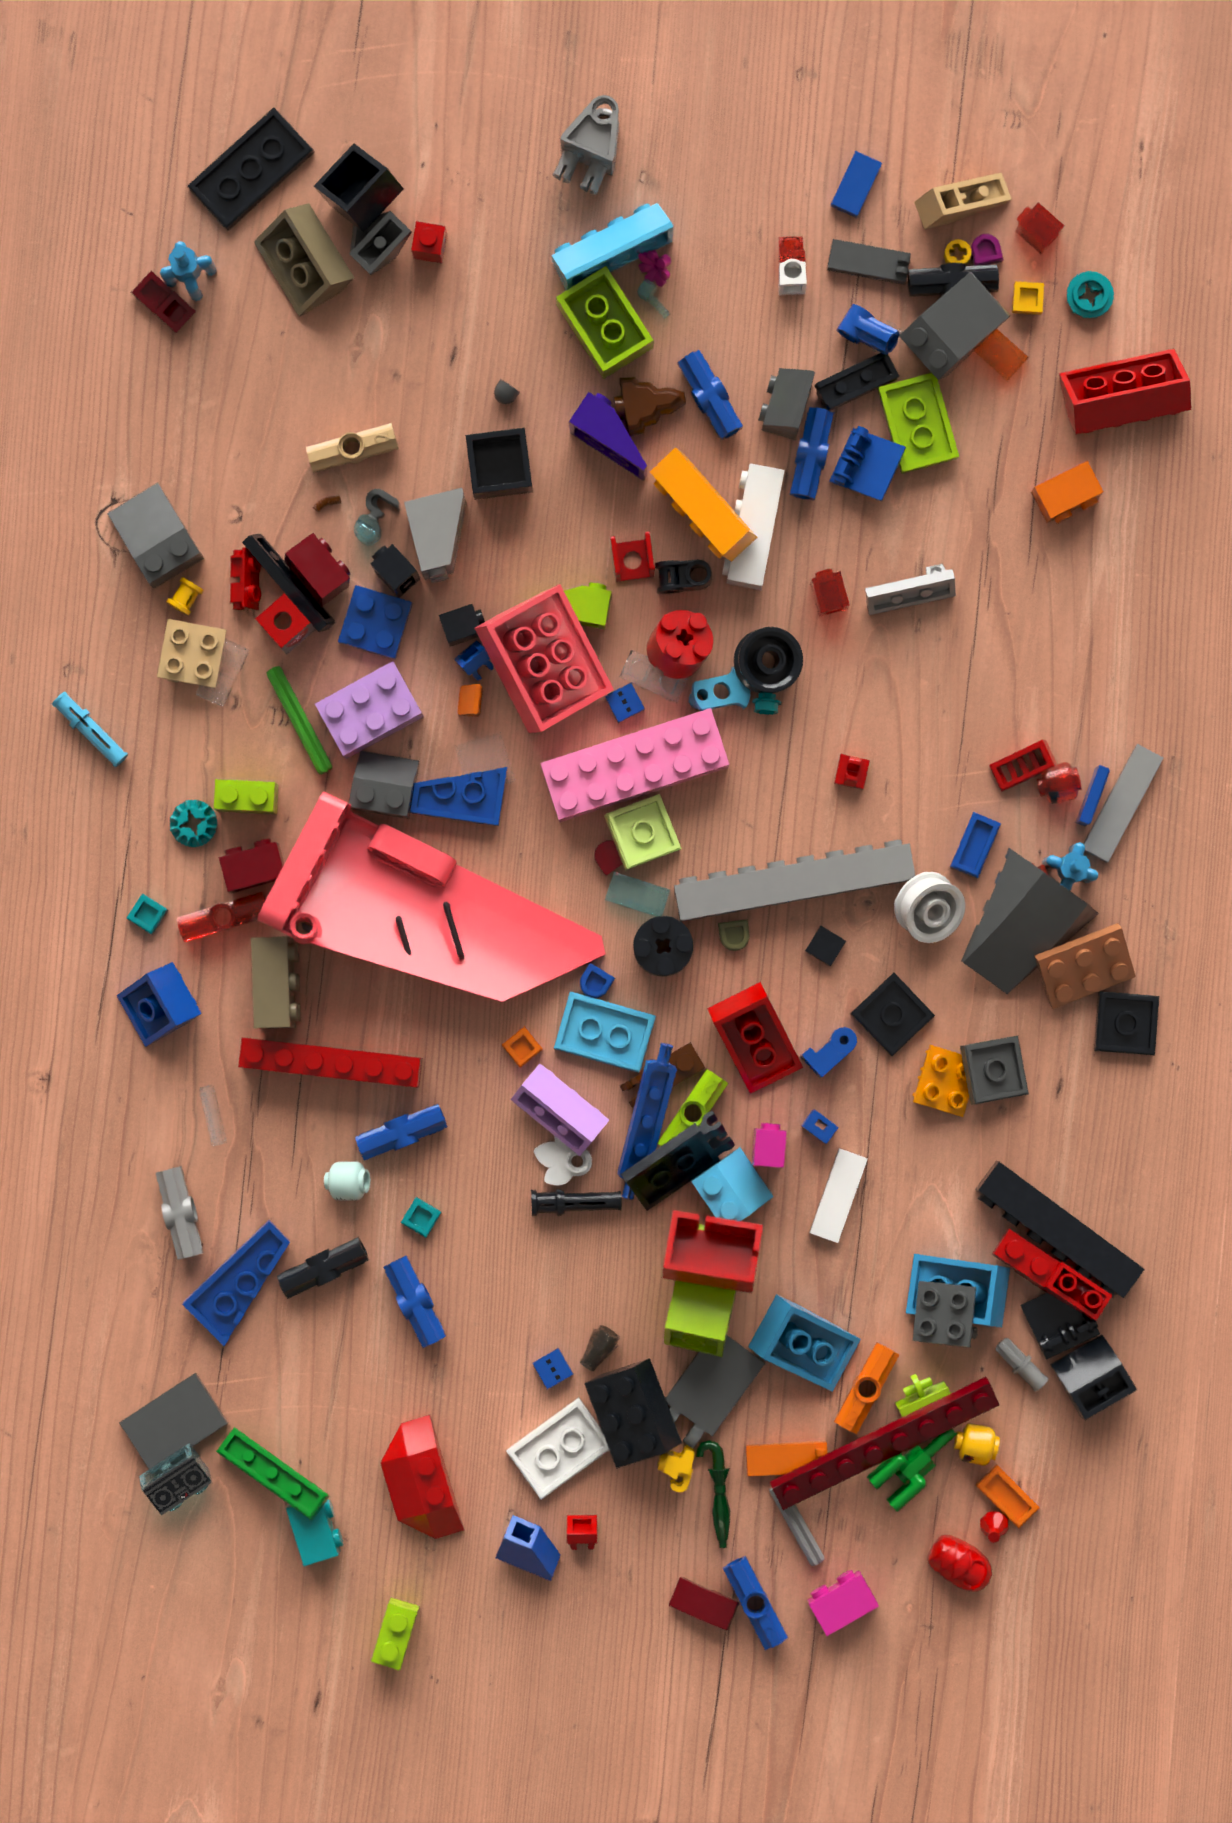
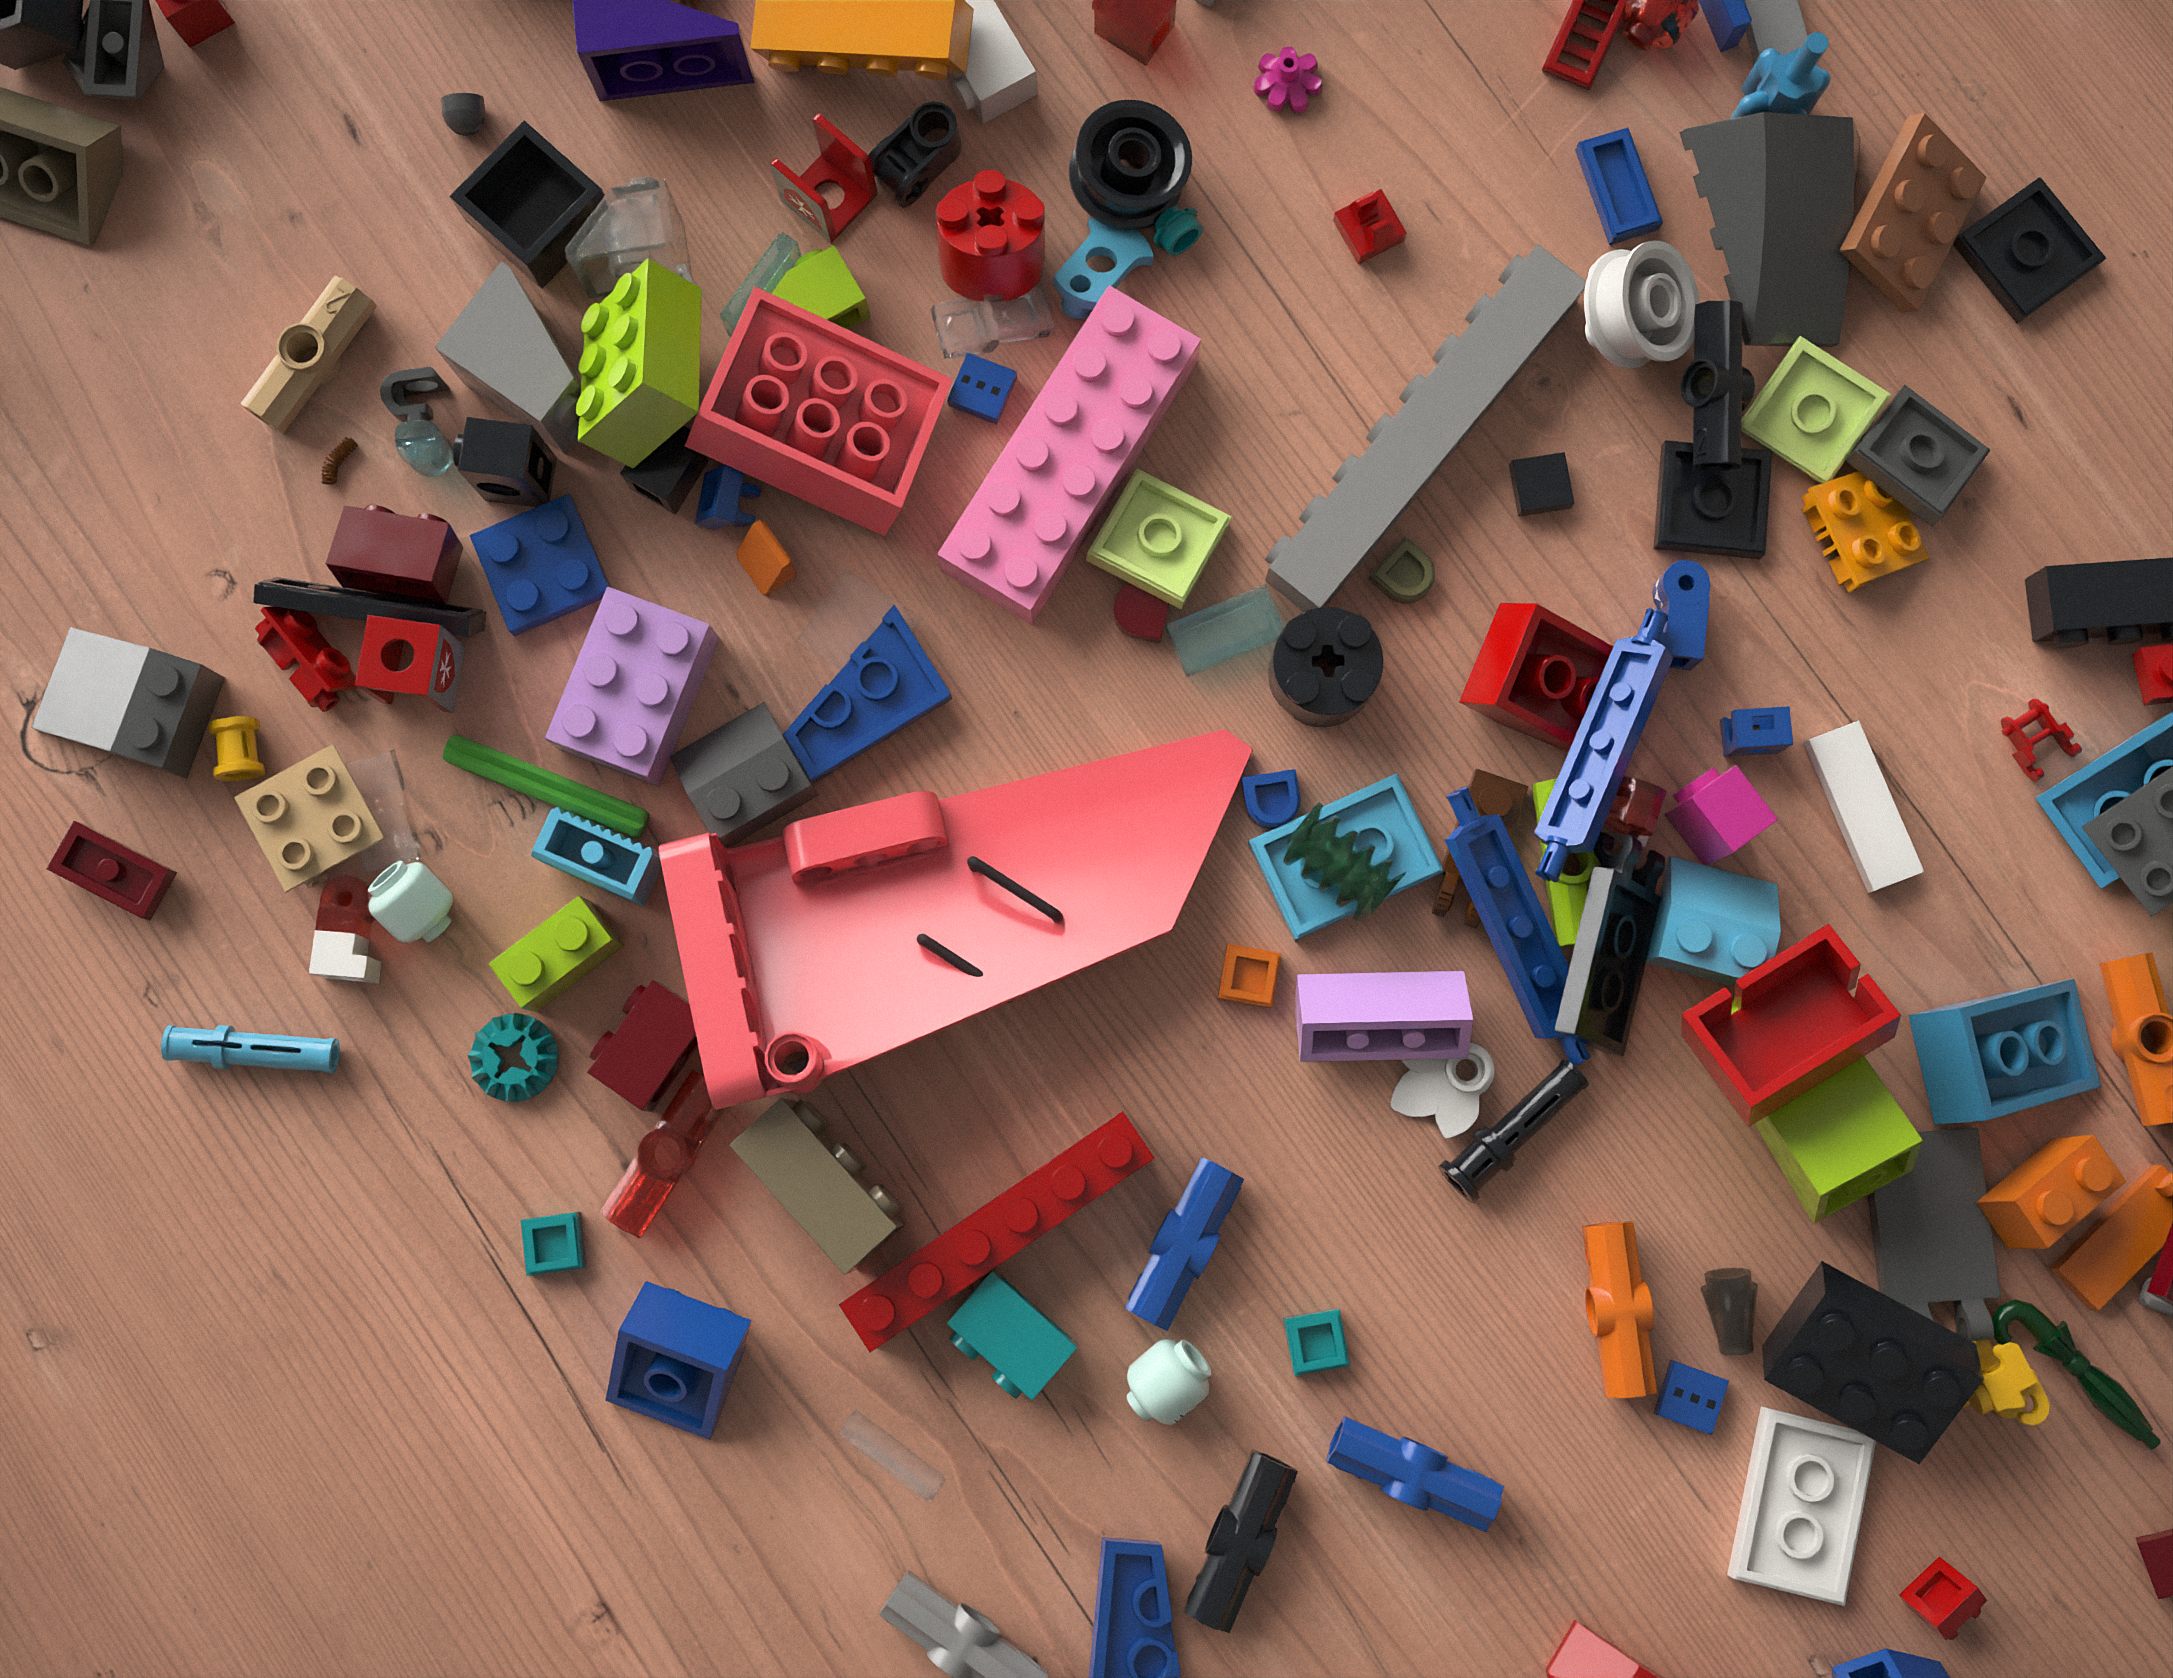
camera: 45 degrees left, 5 degrees down
(93, 605) = (111, 870): none -> dark red plate
(173, 705) = (344, 933): none -> leg
(204, 723) = (410, 902): none -> light aqua head
(296, 771) = (597, 856): none -> medium azure brick
(300, 1108) = (1011, 1336): none -> teal brick
(484, 578) = (640, 363): none -> lime brick
(529, 517) = (626, 230): none -> clear slope
(553, 1308) = (1619, 1309): none -> orange piece
(569, 579) = (765, 275): none -> clear light blue tile
(595, 1033) = (1340, 863): none -> clear green piece
(735, 1114) = (1634, 810): none -> clear red leg
(744, 1077) = (1603, 745): none -> plate
(768, 1411) = (2051, 1192): none -> orange brick
(874, 682) = (1287, 80): none -> dark pink plant
(930, 969) = (1717, 386): none -> black piece
(933, 1217) = (2024, 756): none -> red piece
(966, 1013) = (1813, 411): none -> yellowish green tile

